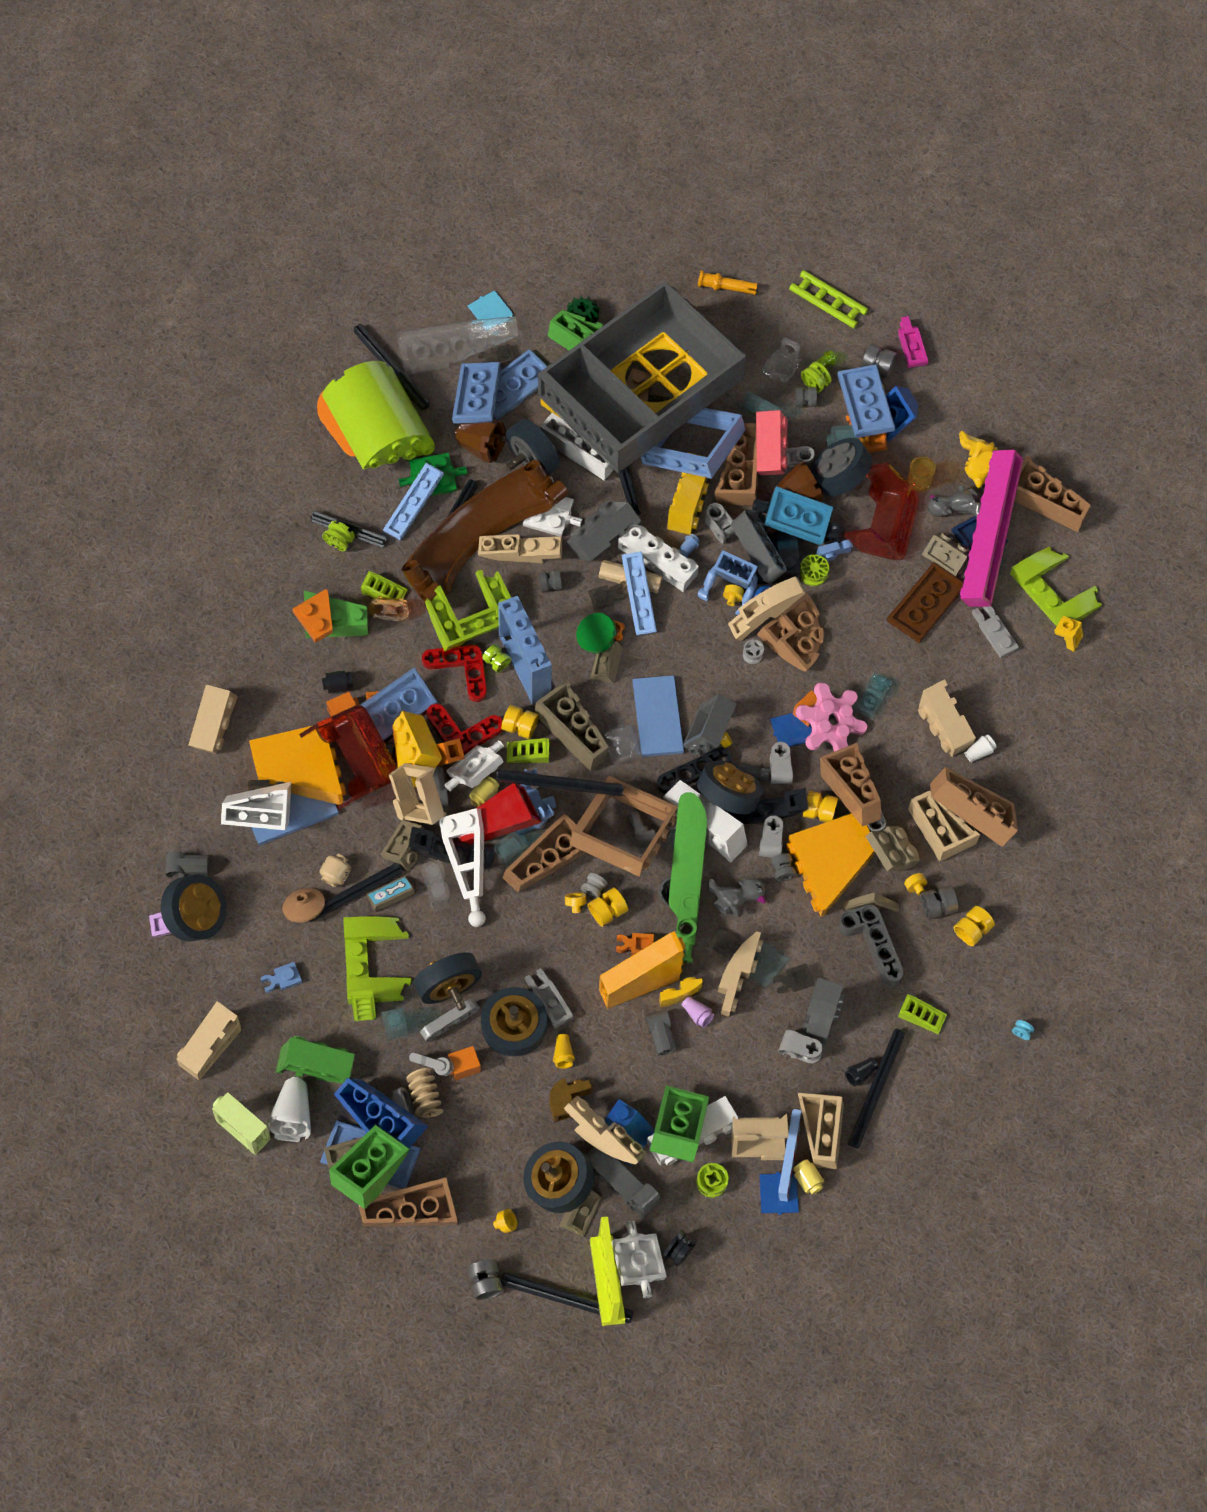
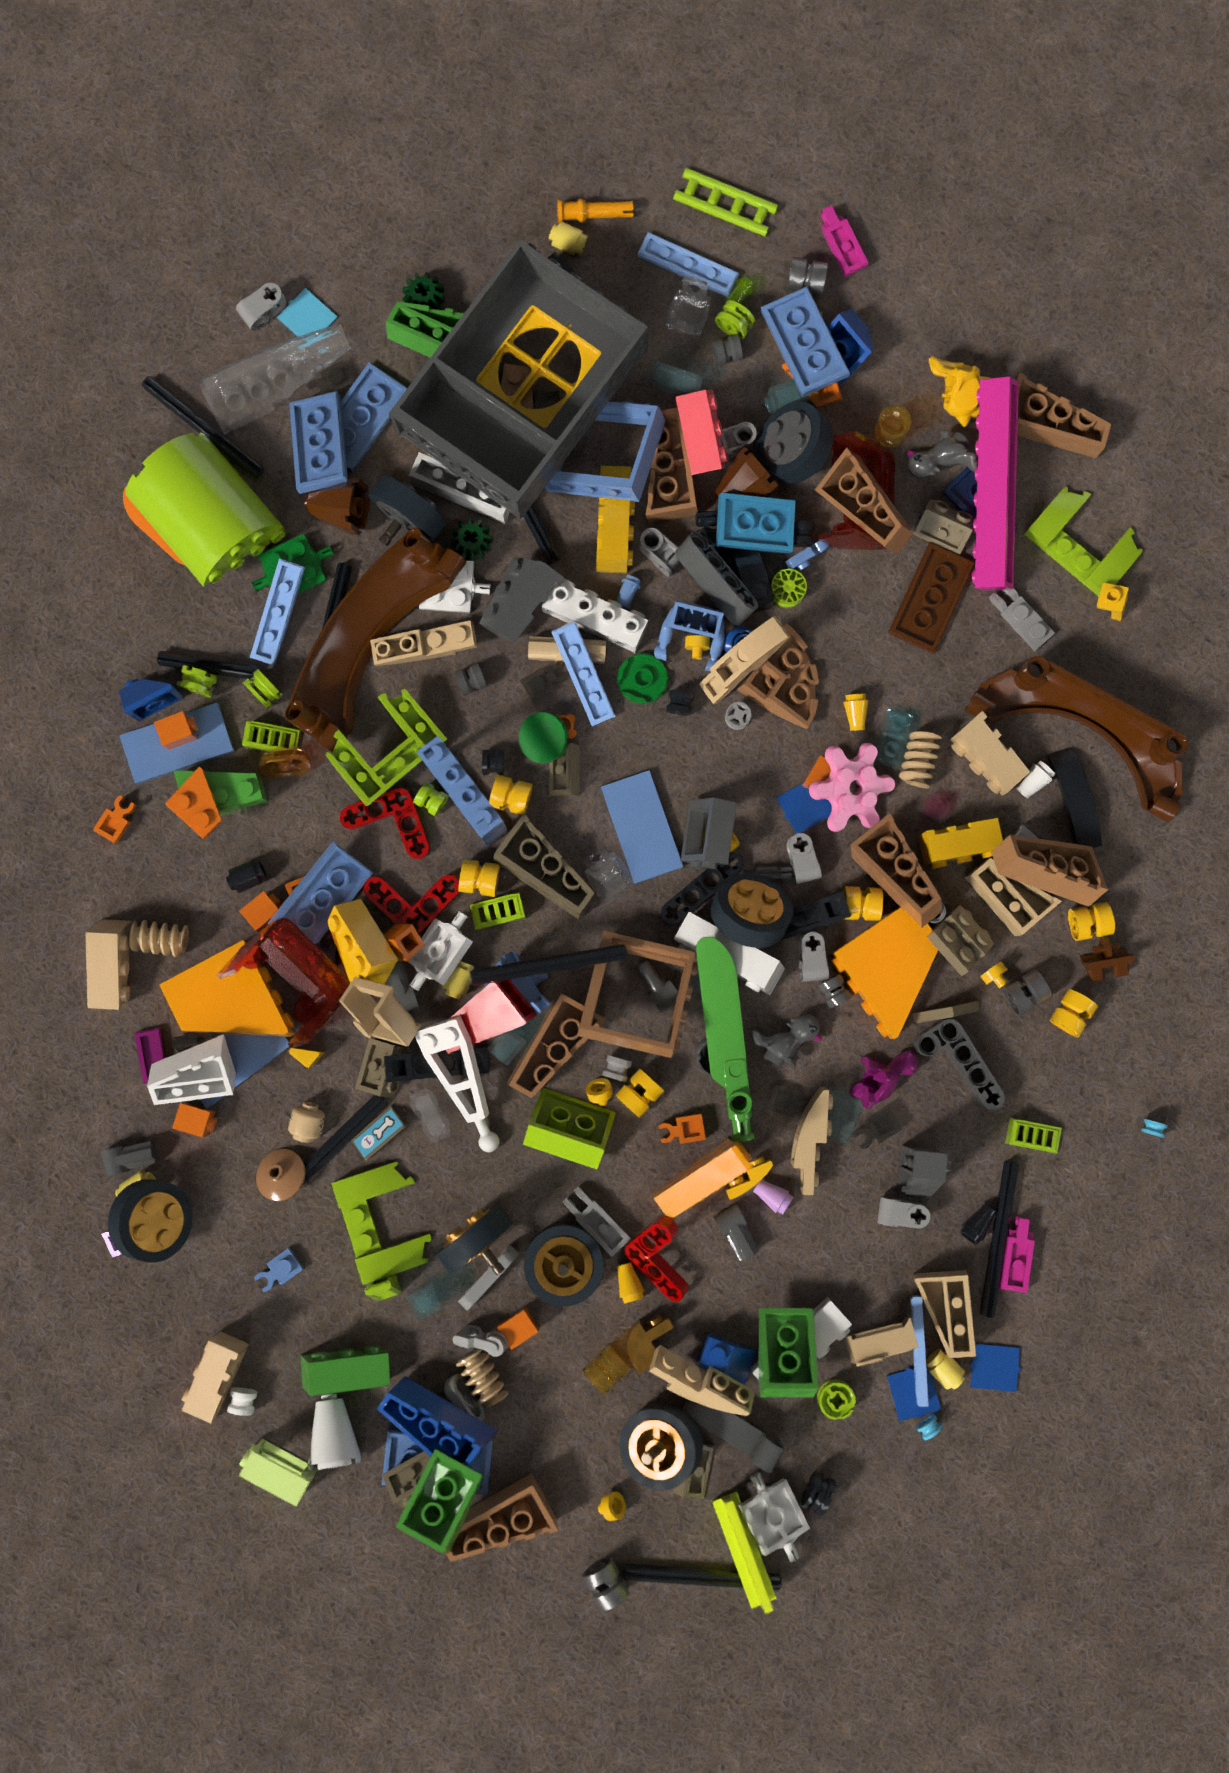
camera: 15 degrees left, 20 degrees up
(225, 786) = (150, 1050): none -> magenta tile
(225, 1068) = (242, 1401): none -> white wheel
(246, 622) = (113, 823): none -> orange plate
(247, 848) = (195, 1119): none -> orange brick
(257, 711) = (158, 940): none -> tan piece
(293, 577) = (151, 760): none -> medium blue tile
(300, 539) = (147, 697): none -> blue slope
(314, 565) = (176, 730): none -> orange brick
(349, 821) = (305, 1056): none -> yellow slope
(387, 551) = (264, 687): none -> lime wheel
(457, 295) = (259, 307): none -> light grey piece
(529, 1110) = (607, 1368): none -> clear yellow wheel
(543, 922) = (569, 1128): none -> lime slope
(552, 642) = (493, 762): none -> black wheel
(563, 668) = (510, 795): none -> yellow wheel
(577, 483) = (466, 547): none -> dark green gear
(584, 1026) = (645, 1255): none -> red beam
(678, 610) = (647, 685): none -> green tile
(702, 298) = (568, 238): none -> light yellow brick
(709, 632) = (679, 702): none -> black wheel
(782, 329) = (687, 263): none -> light blue tile
(785, 1220) = (929, 1427): none -> medium azure bush
(808, 940) = (881, 1079): none -> magenta animal
(848, 667) = (856, 710): none -> yellow cone
(851, 1189) = (995, 1367): none -> blue piece
(884, 515) = (862, 499): none -> medium nougat wedge
(888, 1105) = (1018, 1257): none -> dark pink hinge
(890, 712) = (919, 758): none -> tan piece
(896, 752) = (932, 811): none -> clear pink tile
(904, 778) = (960, 843): none -> yellow wedge
(999, 894) = (1105, 956): none -> reddish brown hips
(1010, 863) = (1095, 920): none -> yellow wheel
(1011, 769) = (1076, 798): none -> black slope
(1017, 690) = (1133, 734): none -> reddish brown panel

